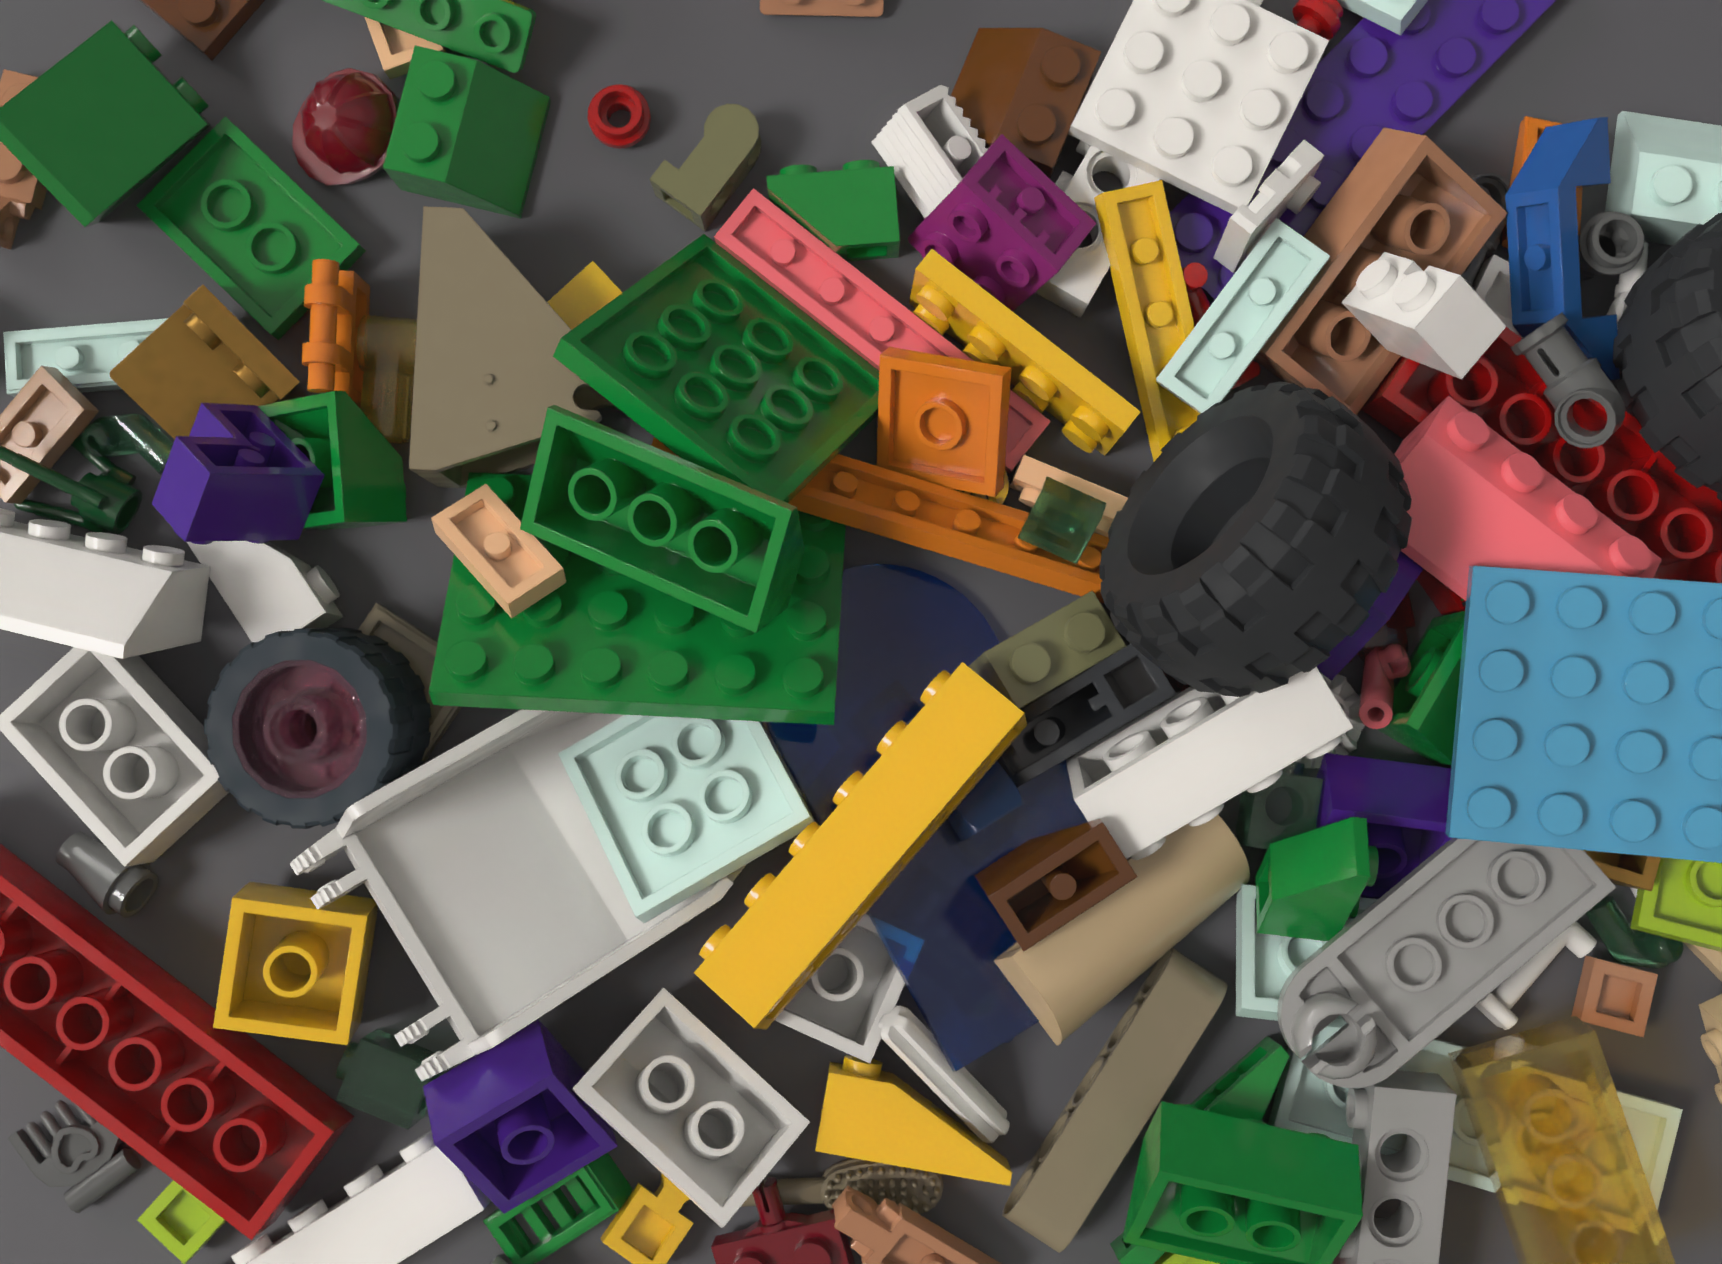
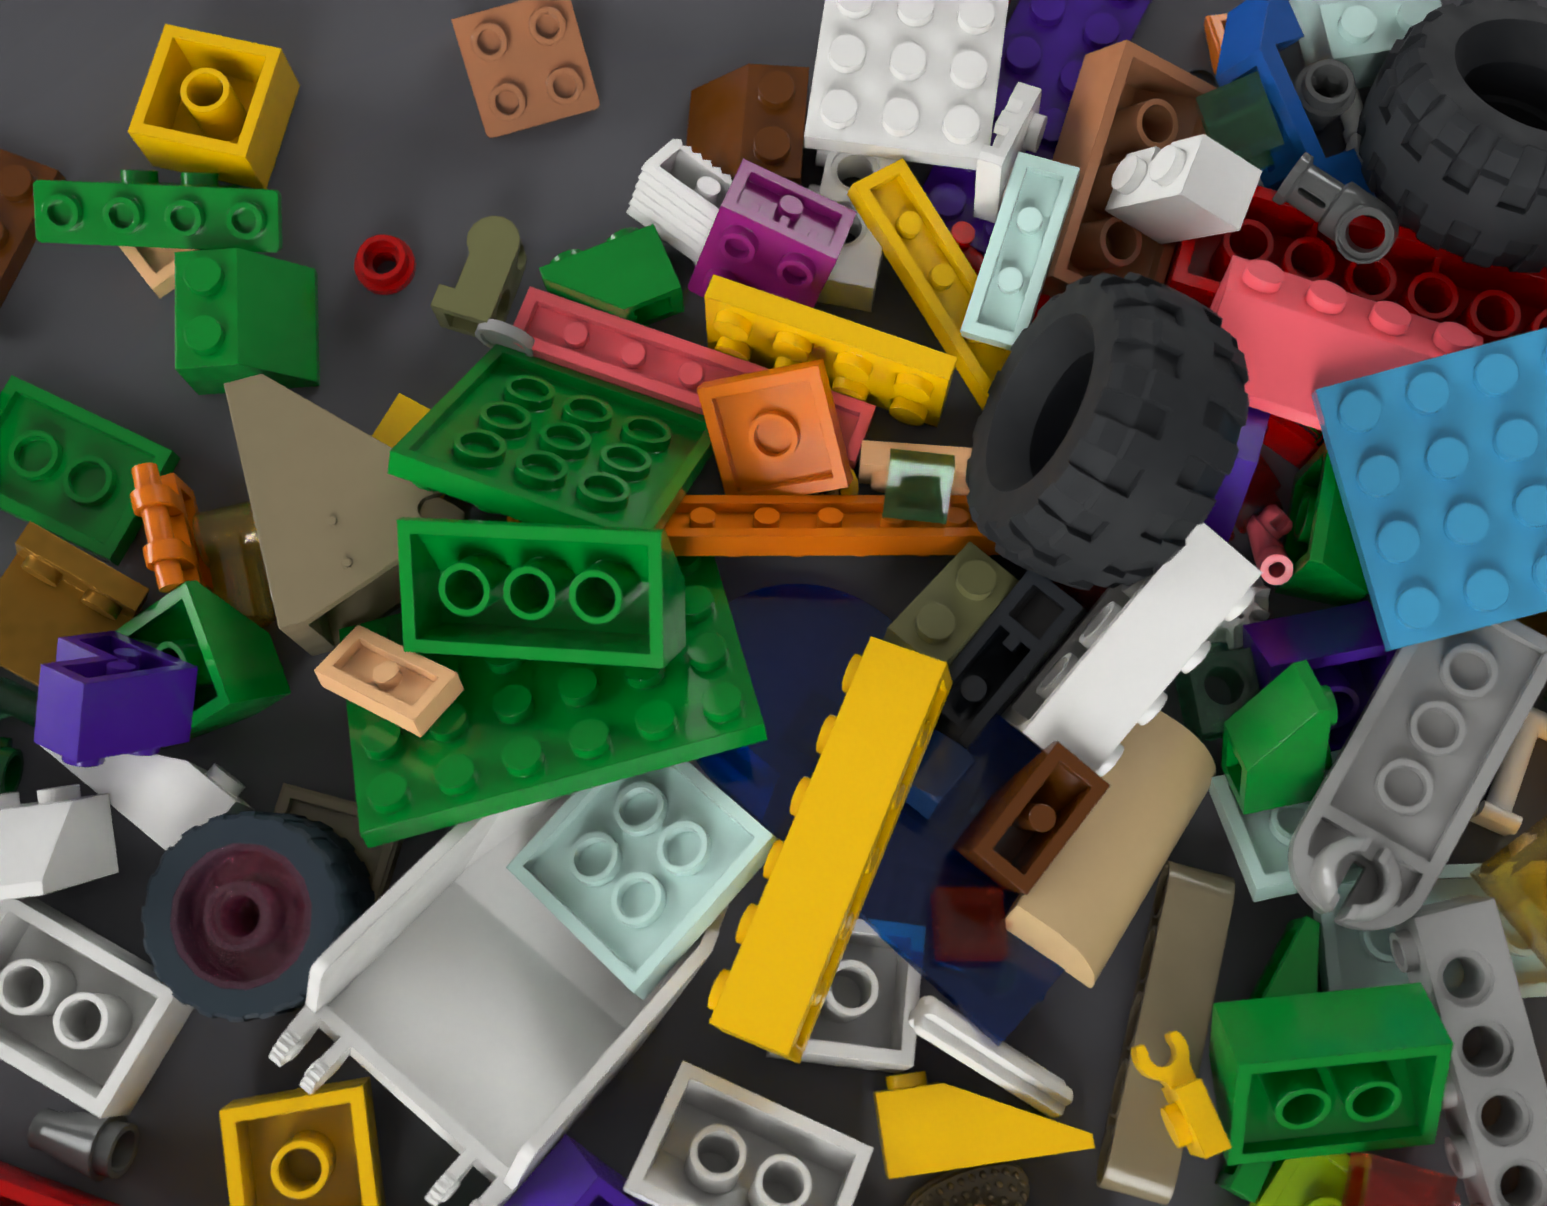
camera: 15 degrees left, 10 degrees down
(345, 127) = (129, 352): dark red piece -> none
(706, 225) = (504, 334): none -> light grey piece
(964, 953) = (968, 924): none -> clear red tile
(1104, 1189) = (1189, 1112): none -> yellow plate
(1508, 262) = (1242, 120): none -> clear green brick

